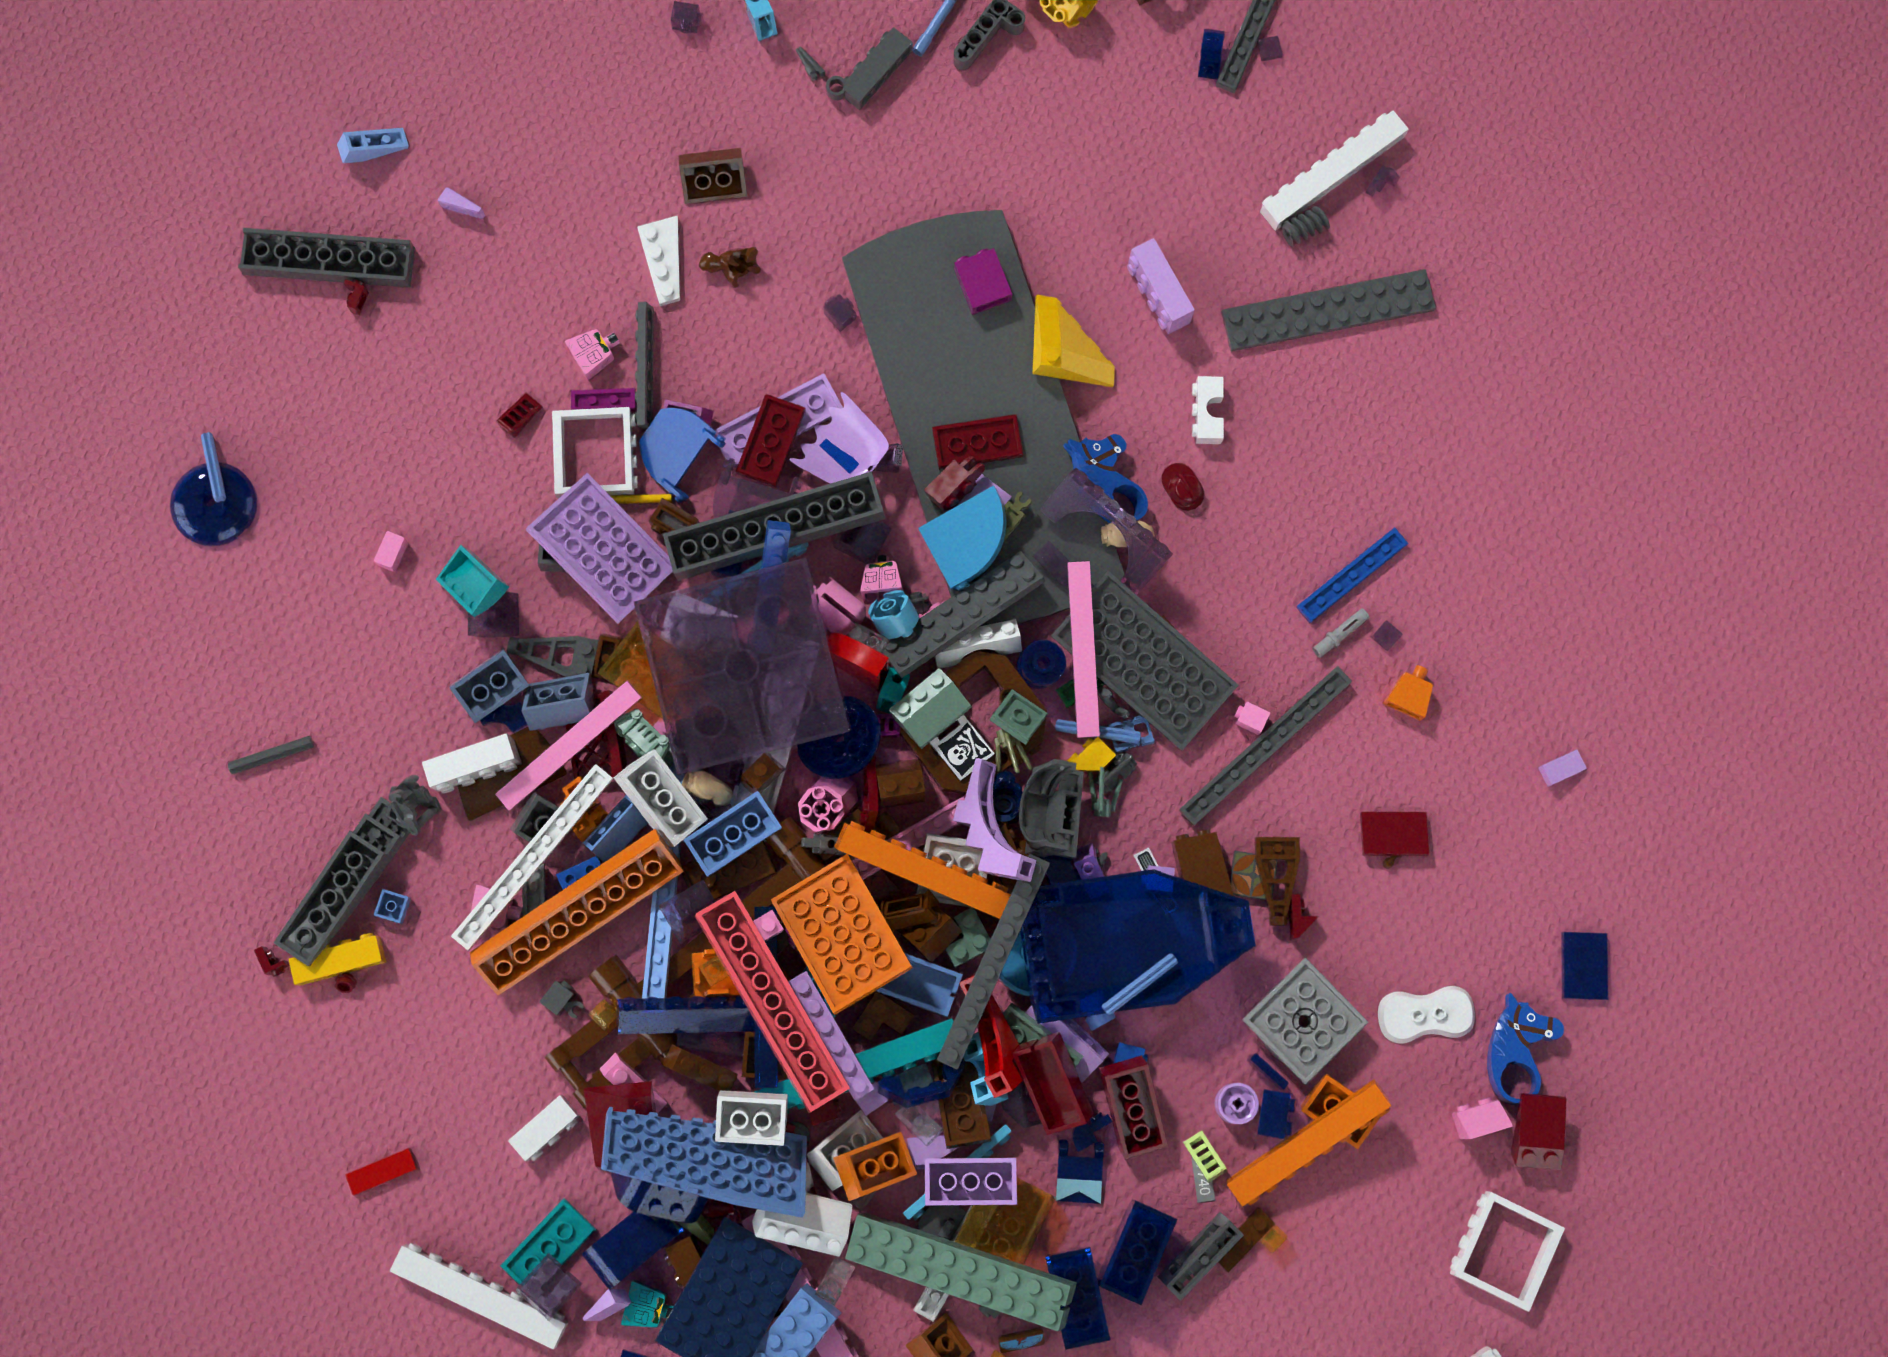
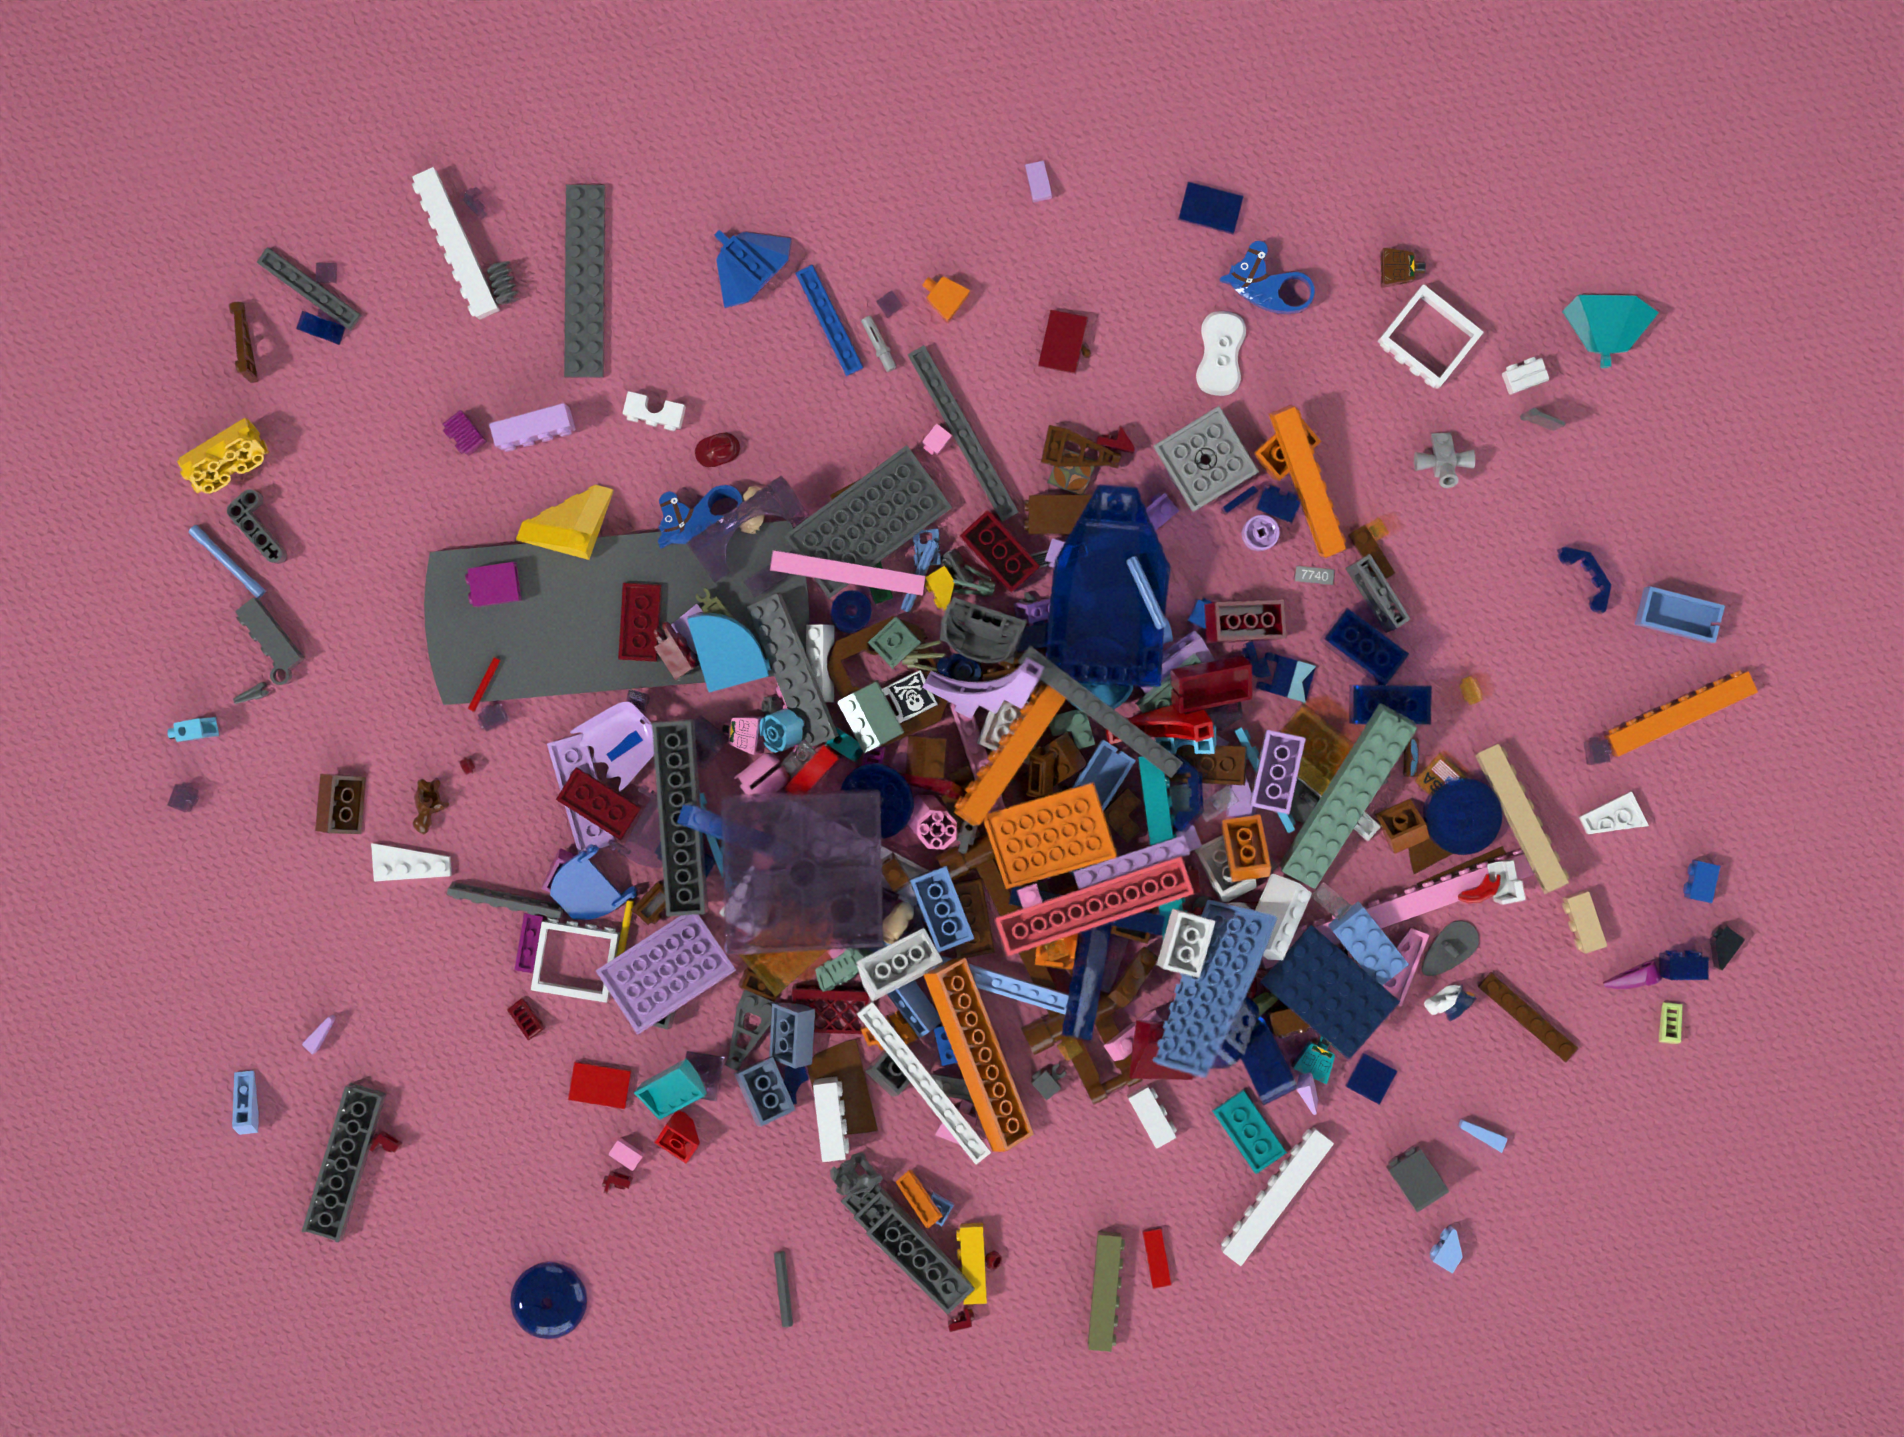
camera: 75 degrees left, 10 degrees up
(213, 467) = (517, 1295): medium blue axle -> none
(331, 1119) = (1105, 1291): none -> olive brick
(360, 551) = (620, 1180): none -> dark red bracket
(399, 882) = (919, 1199): none -> orange plate
(421, 603) = (679, 1136): none -> red slope
(462, 508) = (599, 1085): none -> red tile
(548, 1287) = (1283, 1137): clear purple piece -> none
(568, 745) = (833, 1033): bright pink tile -> none
(592, 351) = (482, 943): bright pink torso -> none
(681, 910) = (995, 961): clear purple slope -> none
(781, 296) = (467, 765): none -> dark red plate
(873, 293) = (484, 684): none -> red bar
(1105, 696) = (895, 559): dark grey piece -> none
(1136, 219) = (464, 433): none -> magenta brick
(1145, 813) = (999, 551): none -> dark red brick
(1215, 1173) = (1313, 565): yellowish green slope -> none
(1233, 983) = (1160, 510): none -> medium lavender bracket
(1371, 1299) = (1444, 459): none -> light grey brick
(1392, 475) = (748, 264): none -> blue panel
(1480, 1119) = (1319, 331): bright pink slope -> none
(1539, 1131) = (1341, 284): dark red slope -> none
(1575, 1196) = (1399, 267): none -> reddish brown torso

